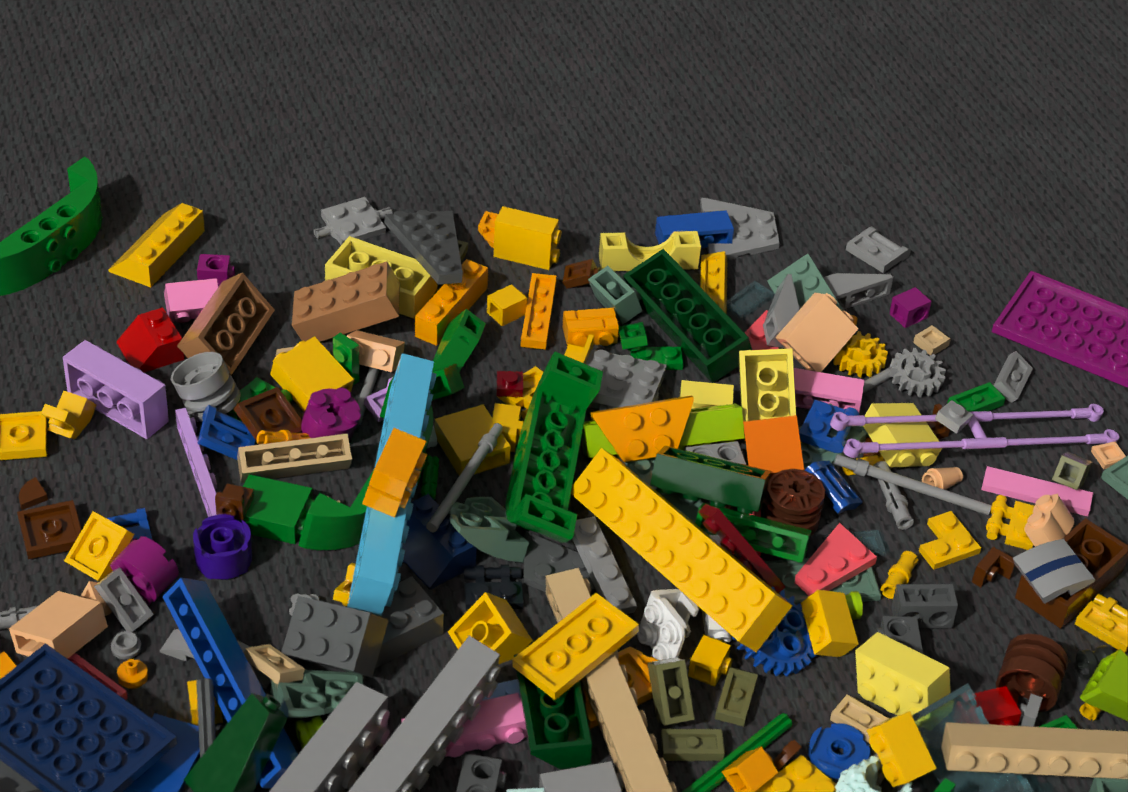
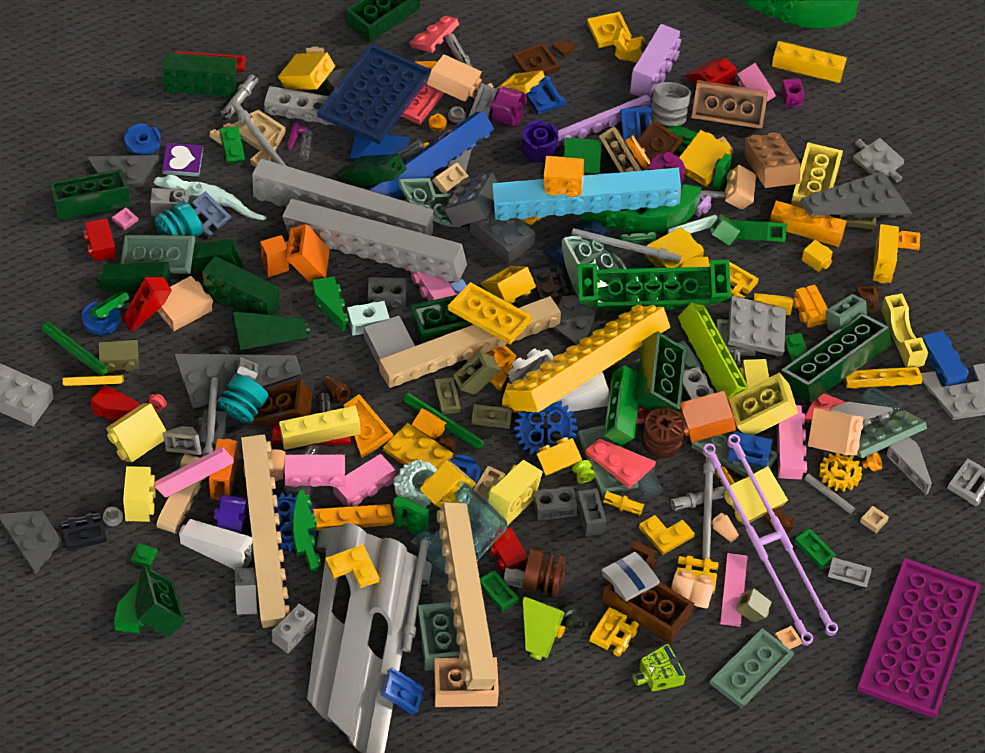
camera: 80 degrees right, 10 degrees up
(234, 501) = (571, 135): reddish brown bracket -> none
(509, 384) = (735, 263): dark red plate -> none
(538, 311) = (820, 276): light orange plate -> none
(602, 565) = (573, 334): light grey plate -> none
(633, 336) = (807, 329): green plate -> none
(644, 428) = (701, 335): light orange wing -> none
(735, 543) = (592, 390): dark red plate -> none
(835, 486) = (691, 460): blue plate -> none
(910, 307) = (906, 503): magenta brick -> none
(917, 372) = (832, 507): light grey gear -> none
(954, 416) = (767, 516): light grey plate -> none

